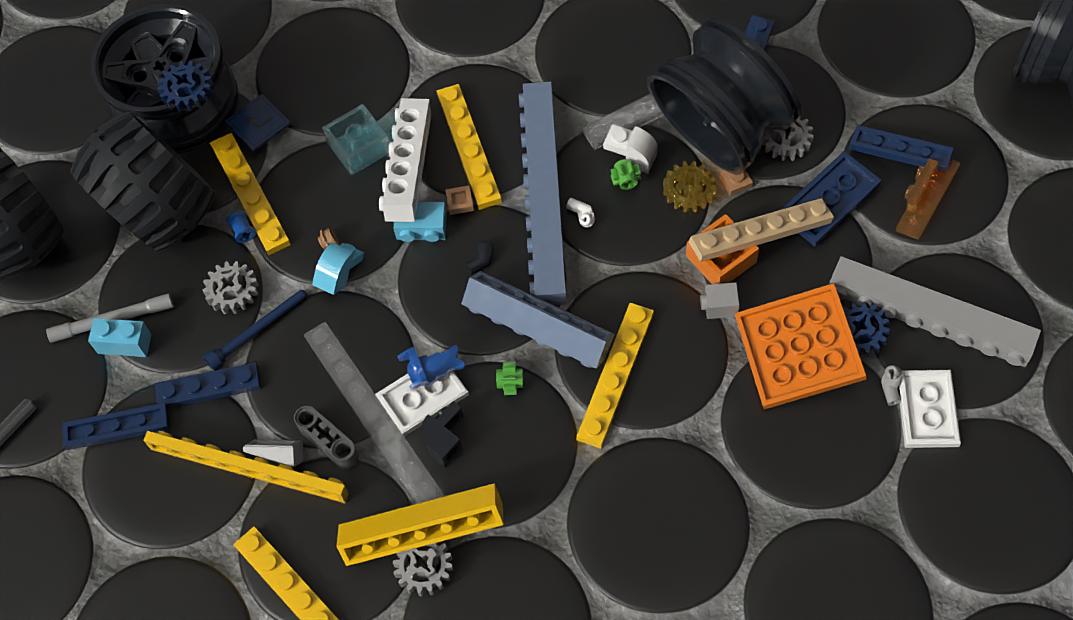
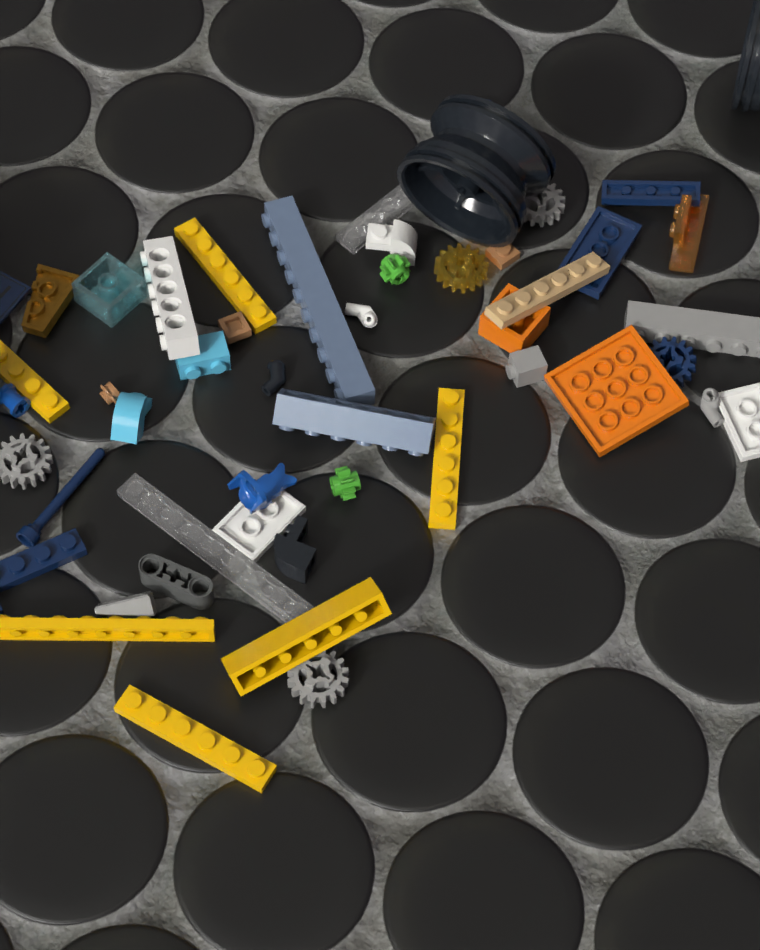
camera: 25 degrees left, 5 degrees down
(302, 138) = (48, 301): none -> pearl gold wing

